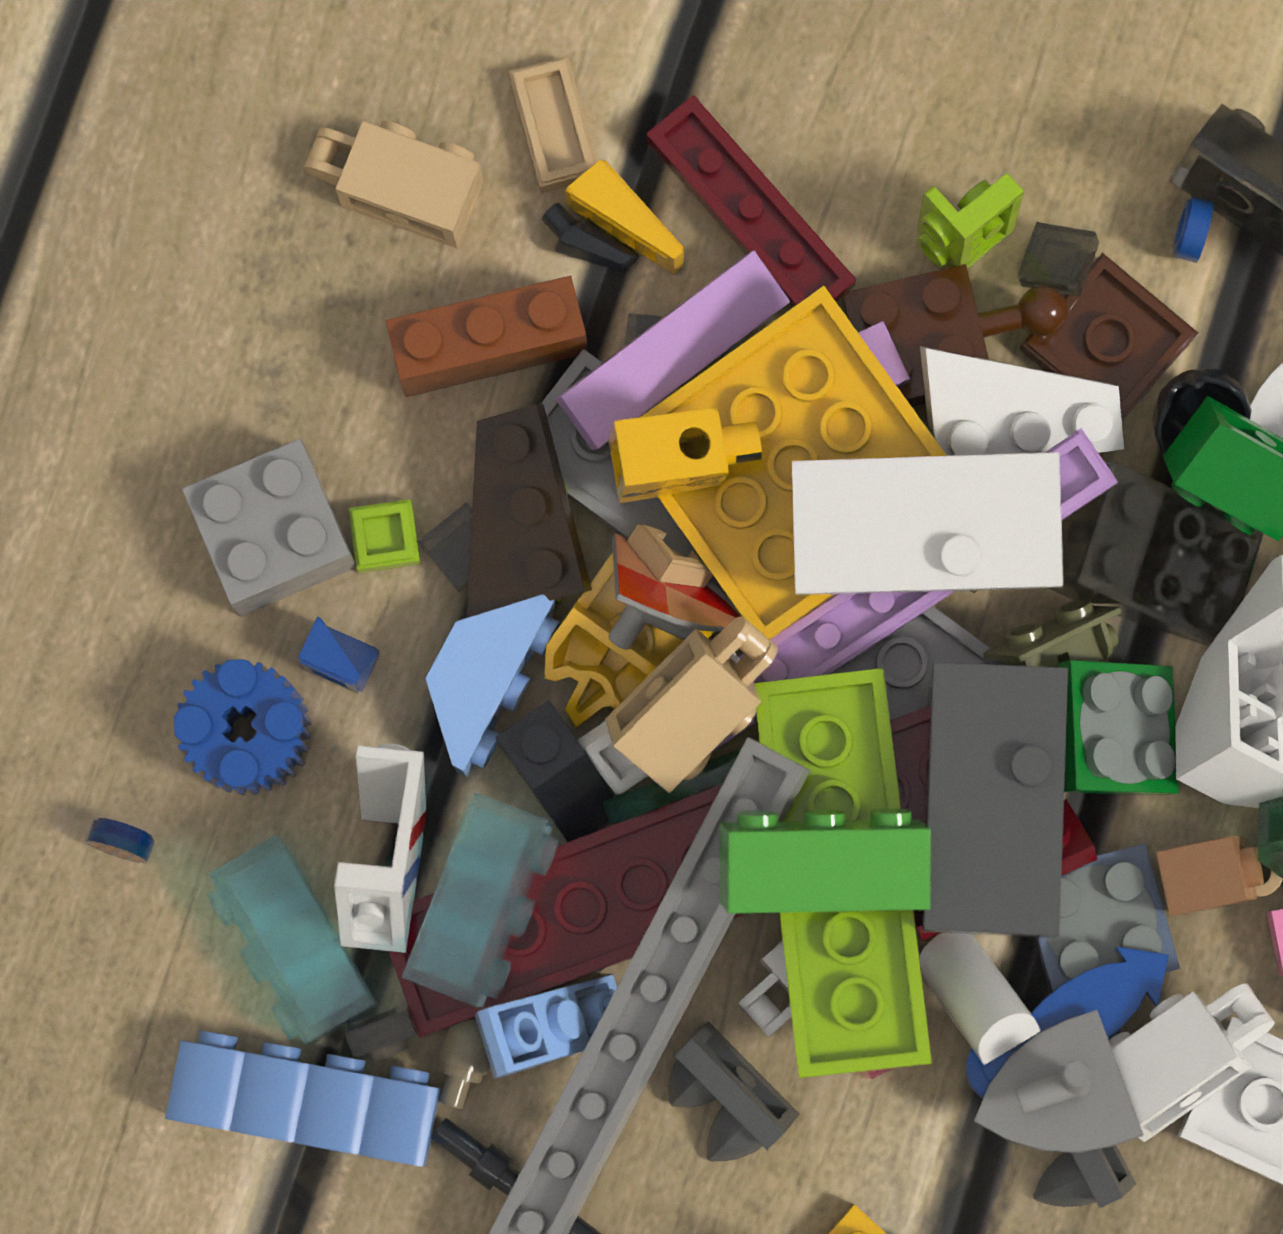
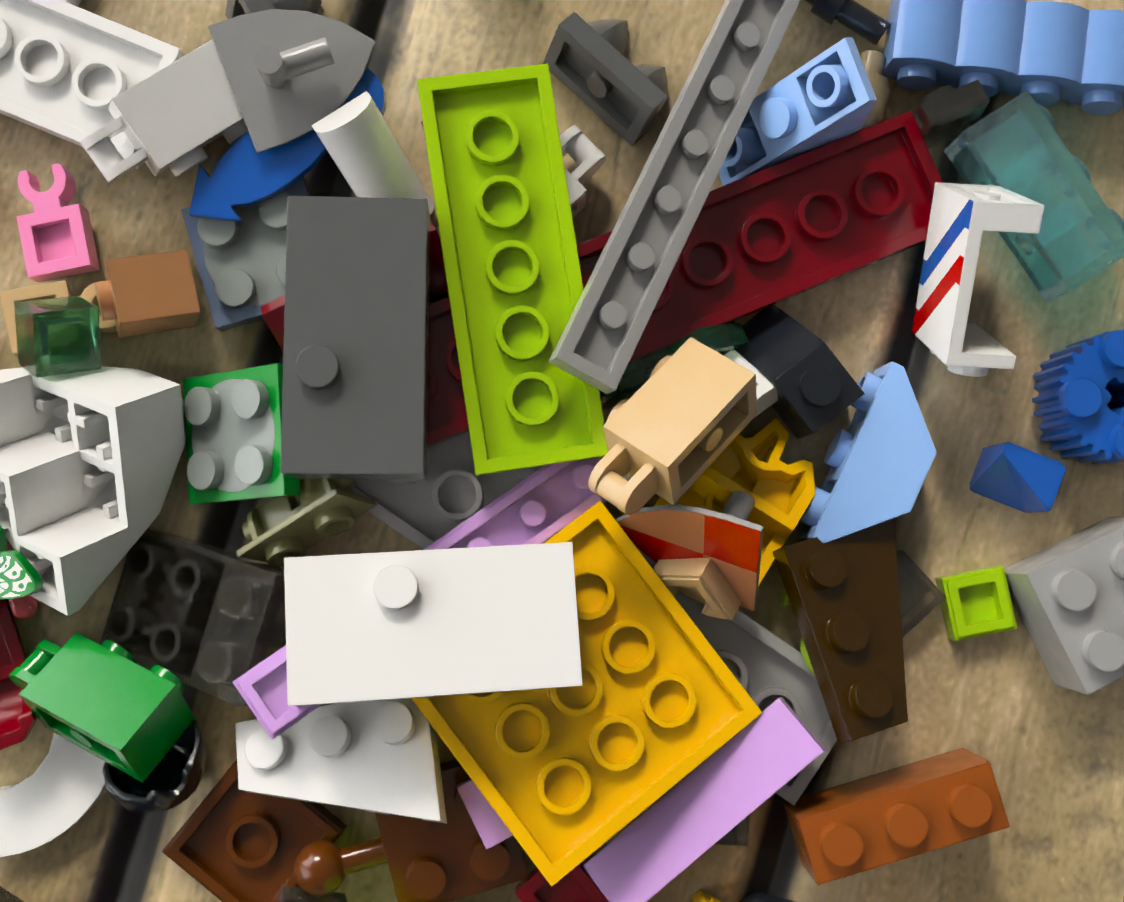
camera: 170 degrees right, 5 degrees up
(481, 901) = (869, 229): clear light blue brick -> none
(649, 456) = (735, 693): yellow torso -> none
(824, 862) = (531, 254): bright green brick -> none

